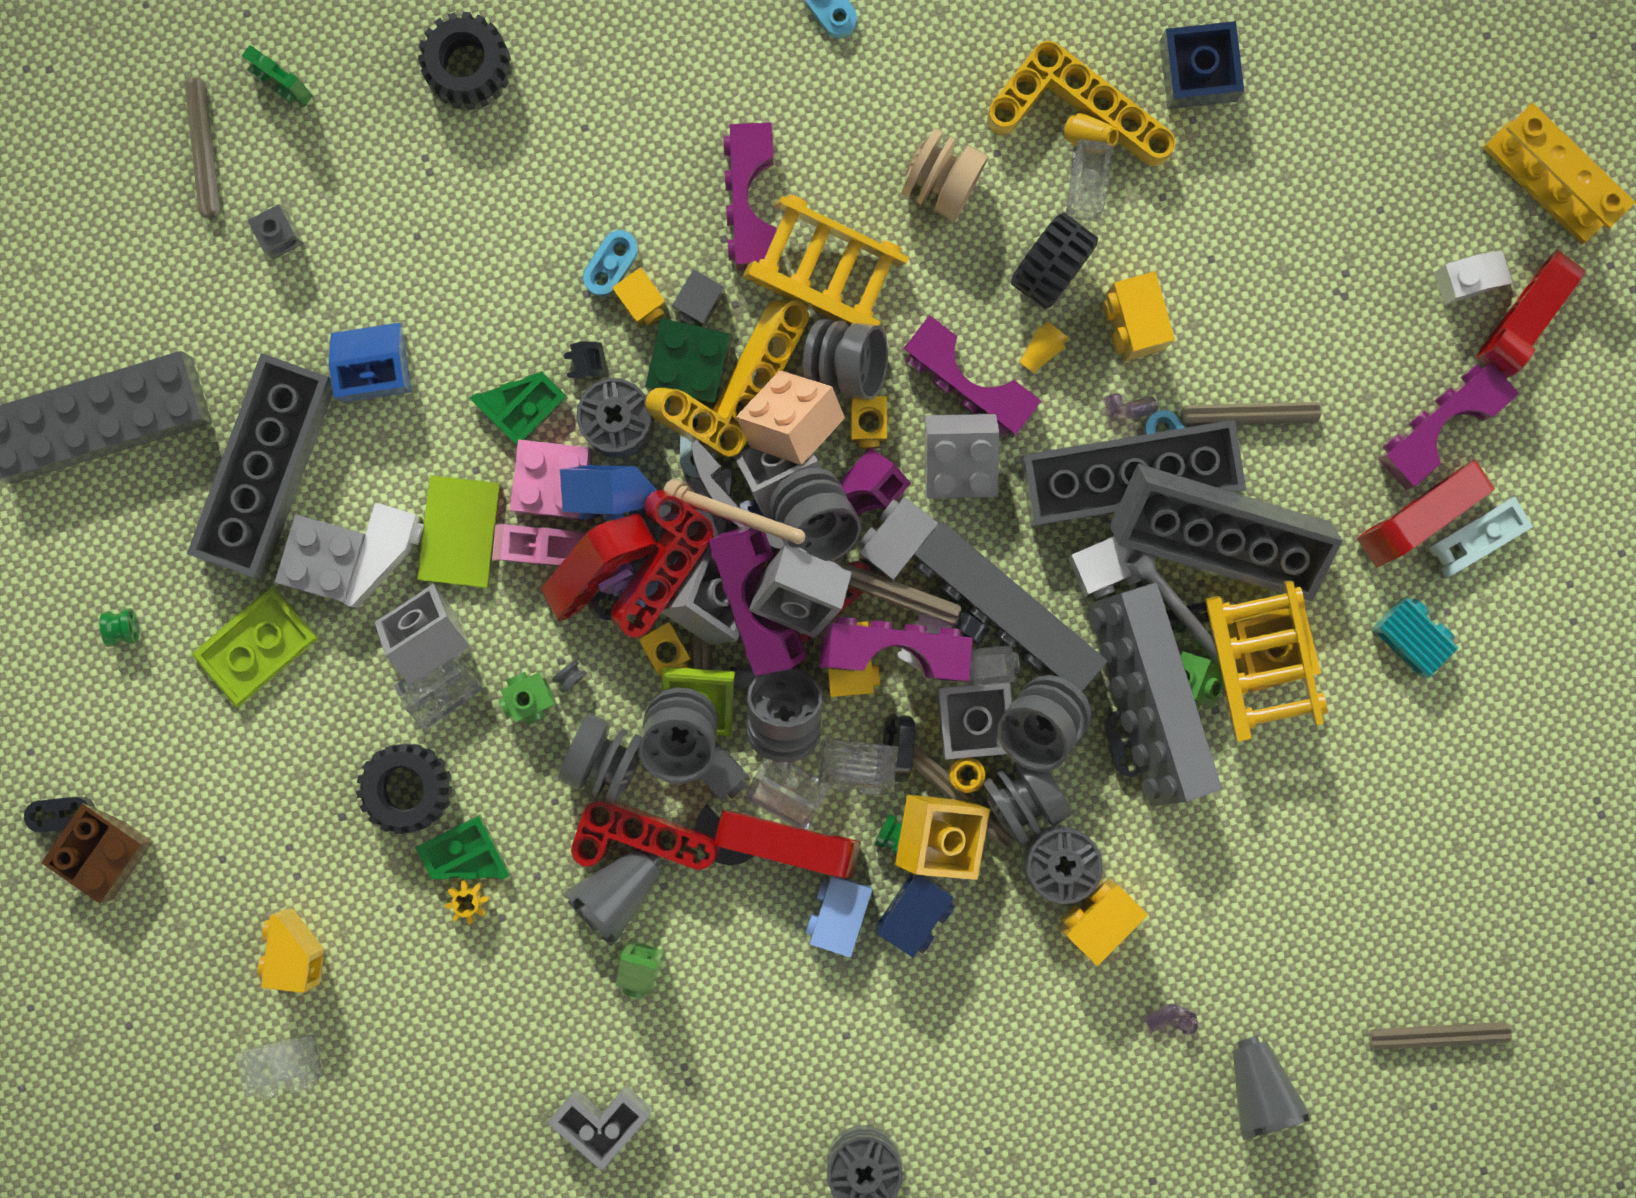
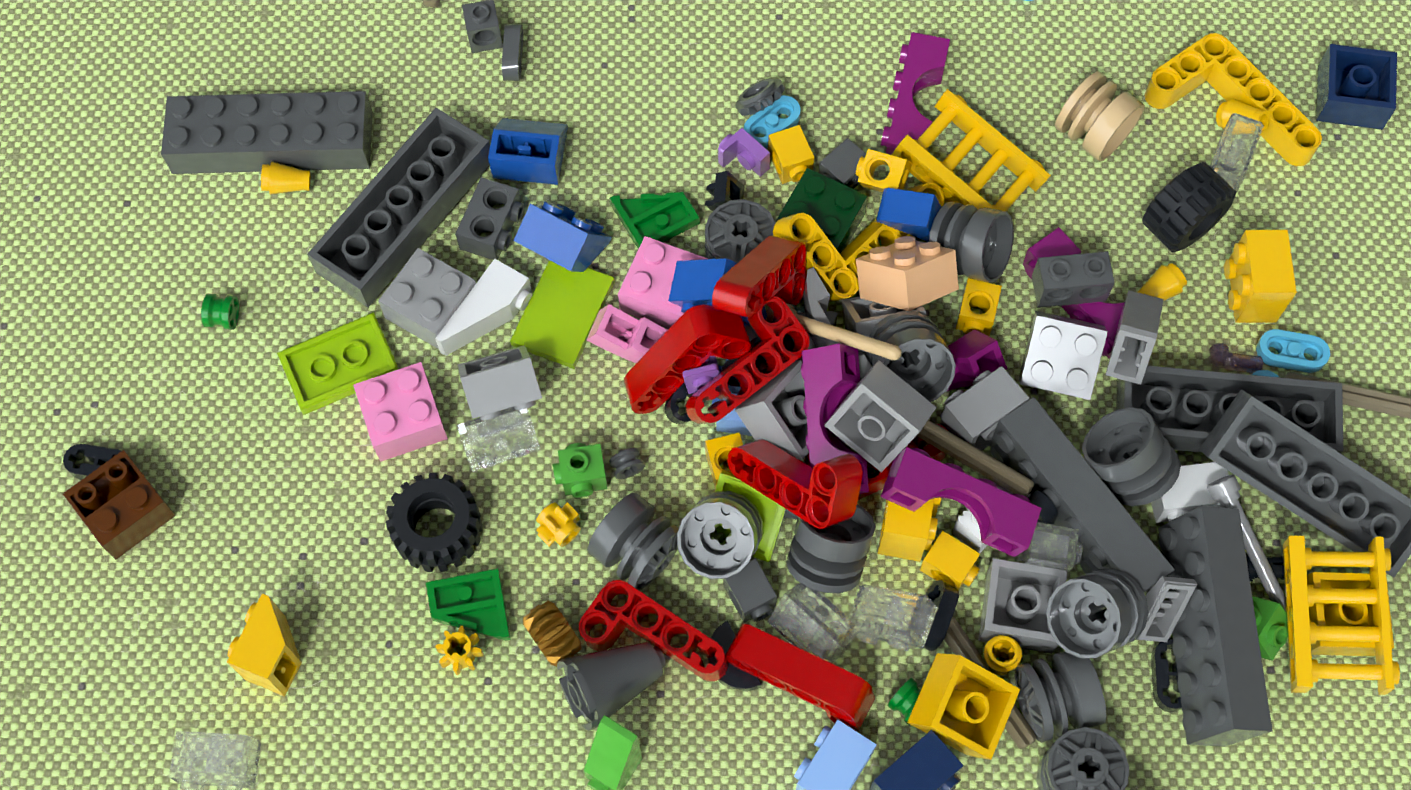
camera: 20 degrees right, 20 degrees down
(128, 464) = (283, 178): none -> yellow cone
(317, 253) = (512, 52): none -> dark grey beam
(334, 685) = (400, 411): none -> bright pink brick
(345, 454) = (483, 218): none -> dark grey brick
(435, 457) = (561, 236): none -> slope
(522, 756) = (558, 524): none -> yellow gear
(548, 865) = (551, 632): none -> pearl gold gear
(590, 240) = (759, 96): none -> dark grey gear
(598, 308) = (746, 149): none -> medium lavender bracket
(657, 460) = (768, 271): none -> red beam
(753, 298) = (897, 176): none -> yellow brick
(757, 685) = (814, 494): none -> red beam
(775, 346) = (908, 211): none -> blue slope
(901, 692) = (951, 562): none -> yellow brick
(954, 378) = (1072, 279): none -> dark grey brick
(1027, 427) = (1135, 337): none -> light grey slope
(1047, 556) = (1131, 456): none -> dark grey wheel
(1106, 692) = (1163, 620): none -> light grey slope
(1183, 382) = (1291, 350): none -> medium azure plate

